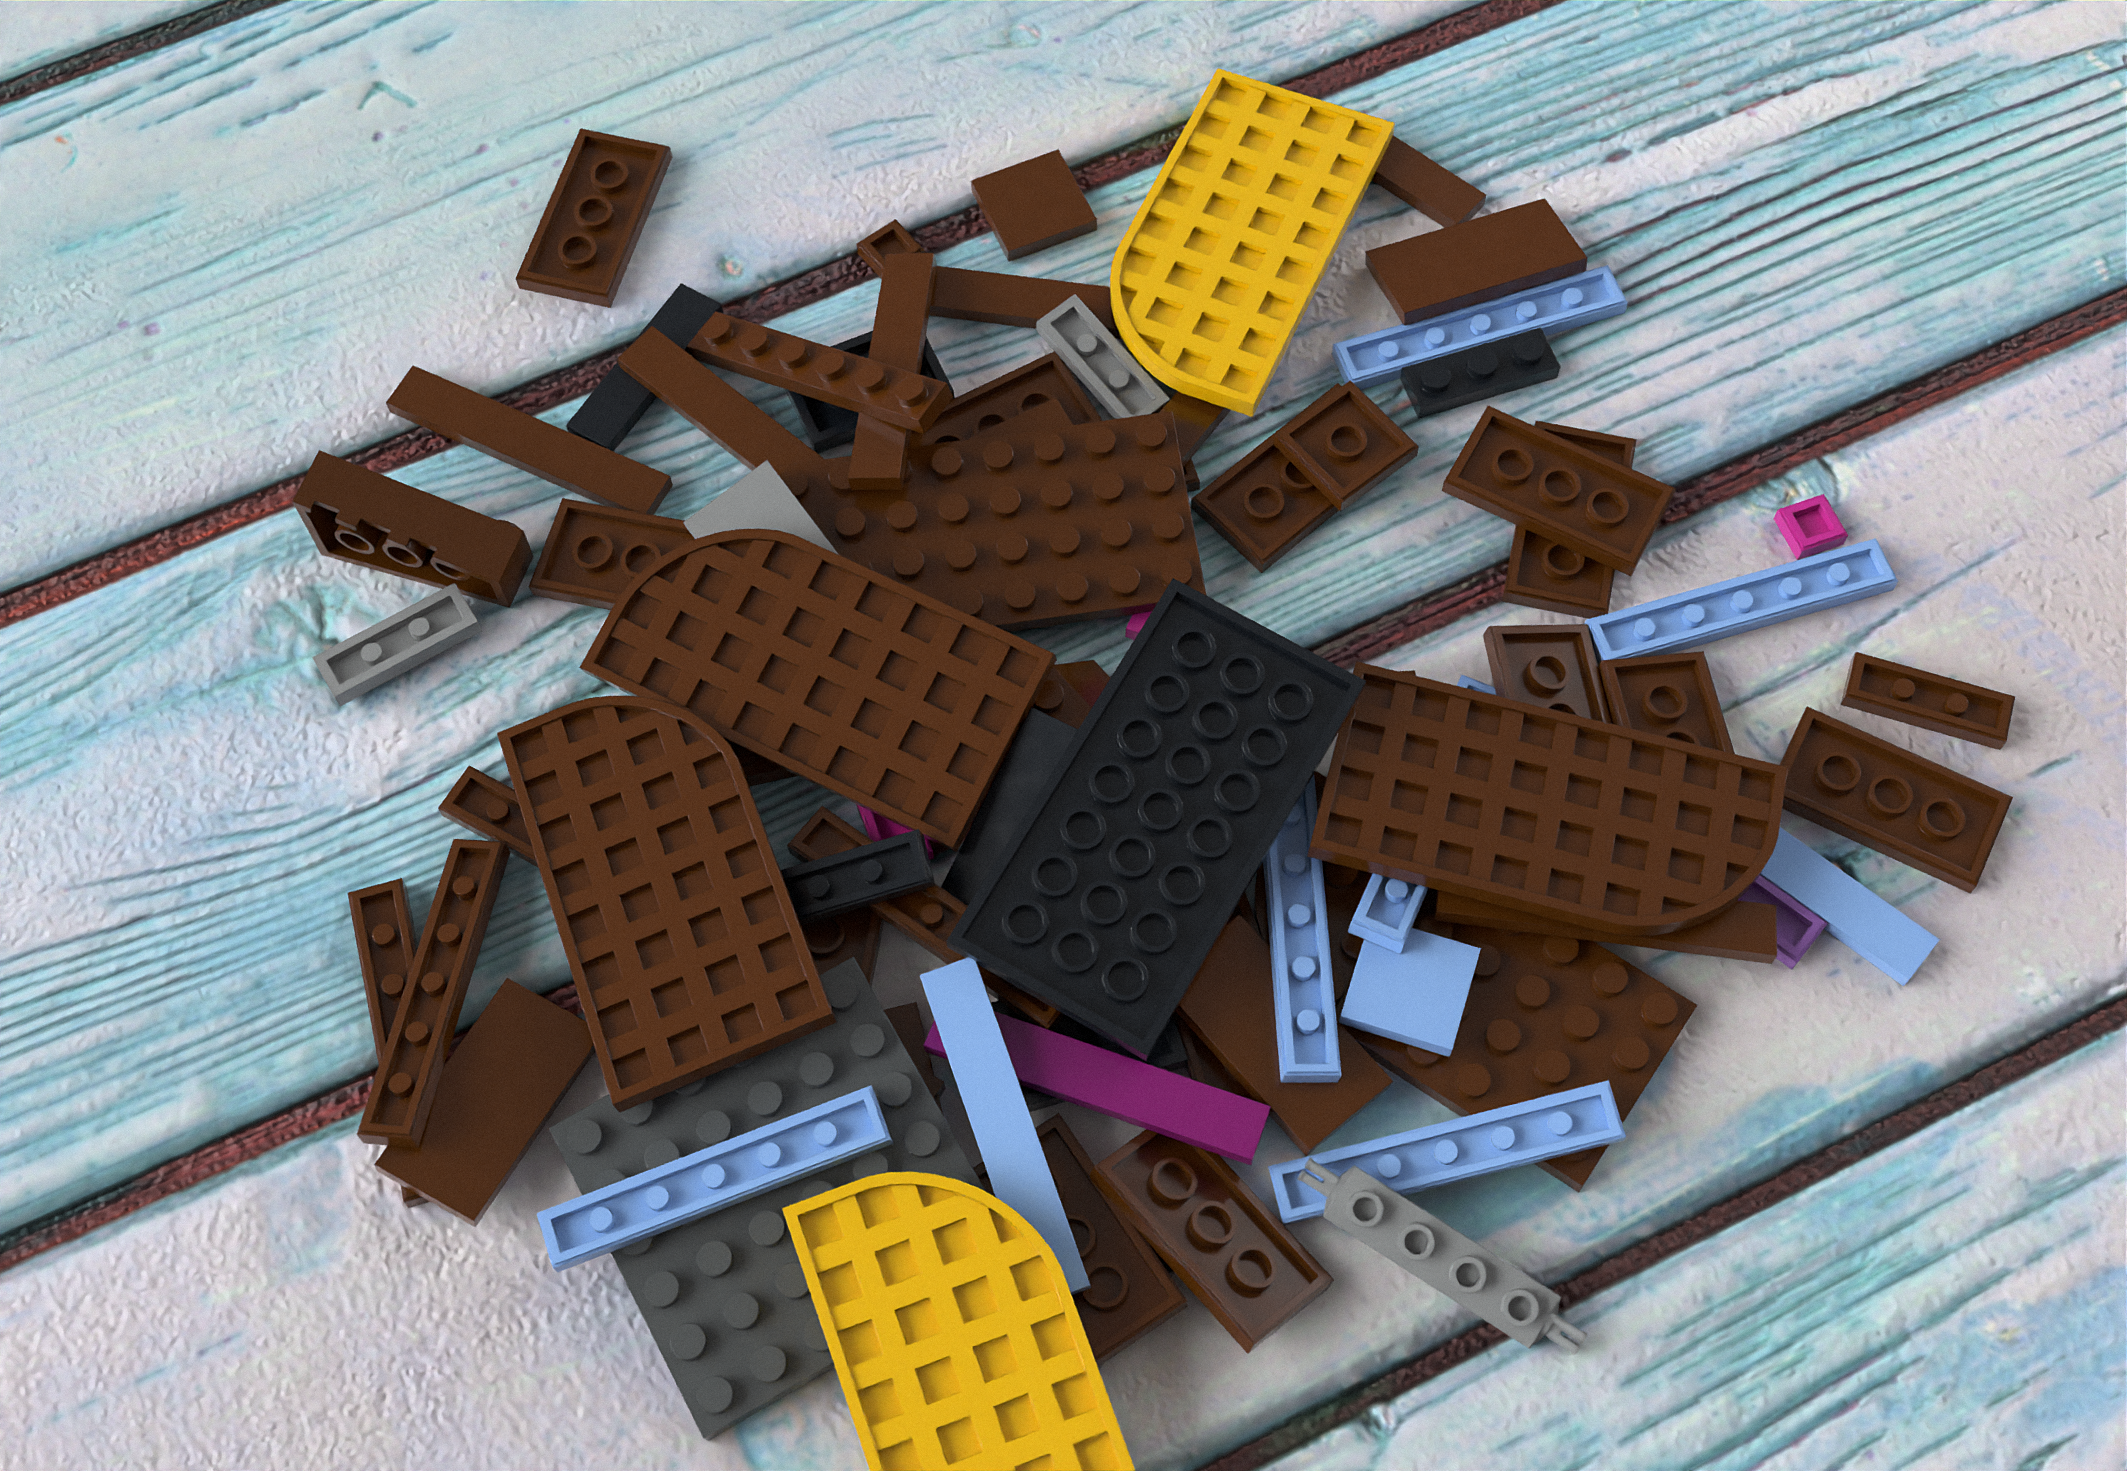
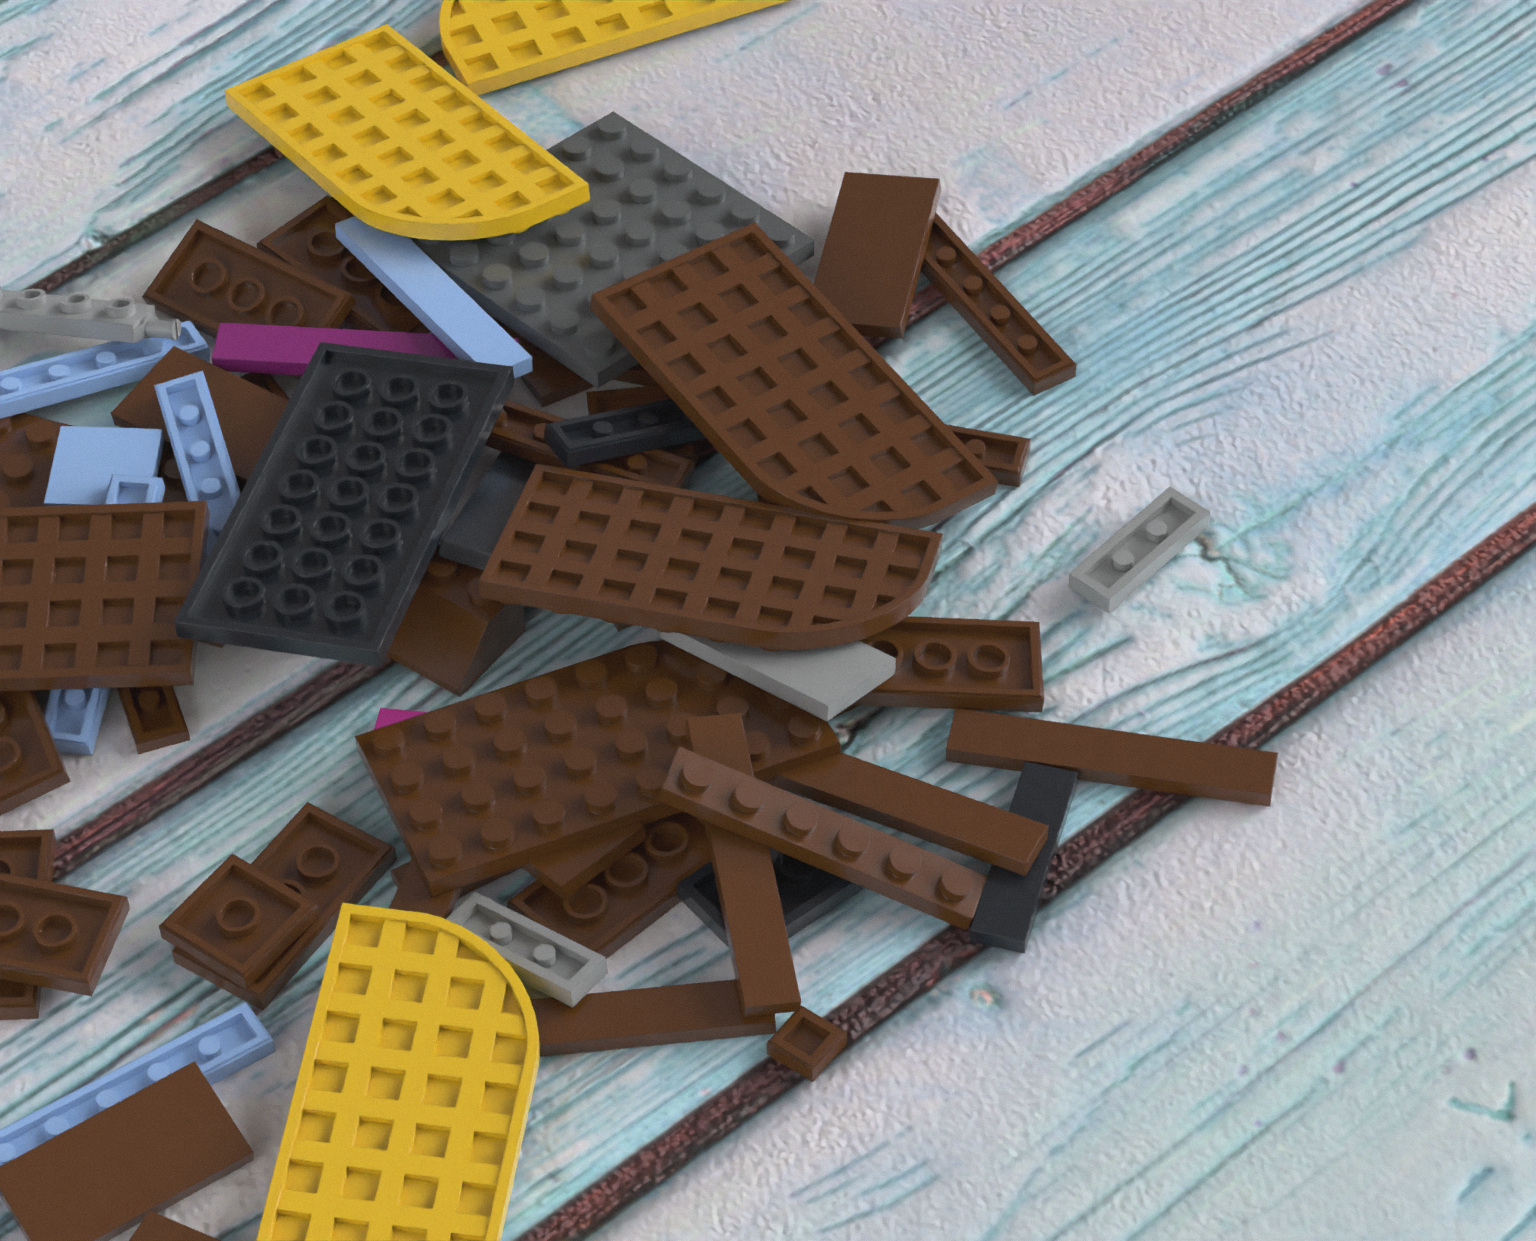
camera: 165 degrees right, 15 degrees down
(410, 532) = (1171, 623): reddish brown wedge -> none
(434, 994) = (956, 306): reddish brown tile -> none
(594, 218) = (1162, 1009): reddish brown tile -> none
(713, 1178) = (655, 219): light blue tile -> none
(1033, 205) = (658, 1131): reddish brown tile -> none
(1479, 373) = (100, 1050): black plate -> none

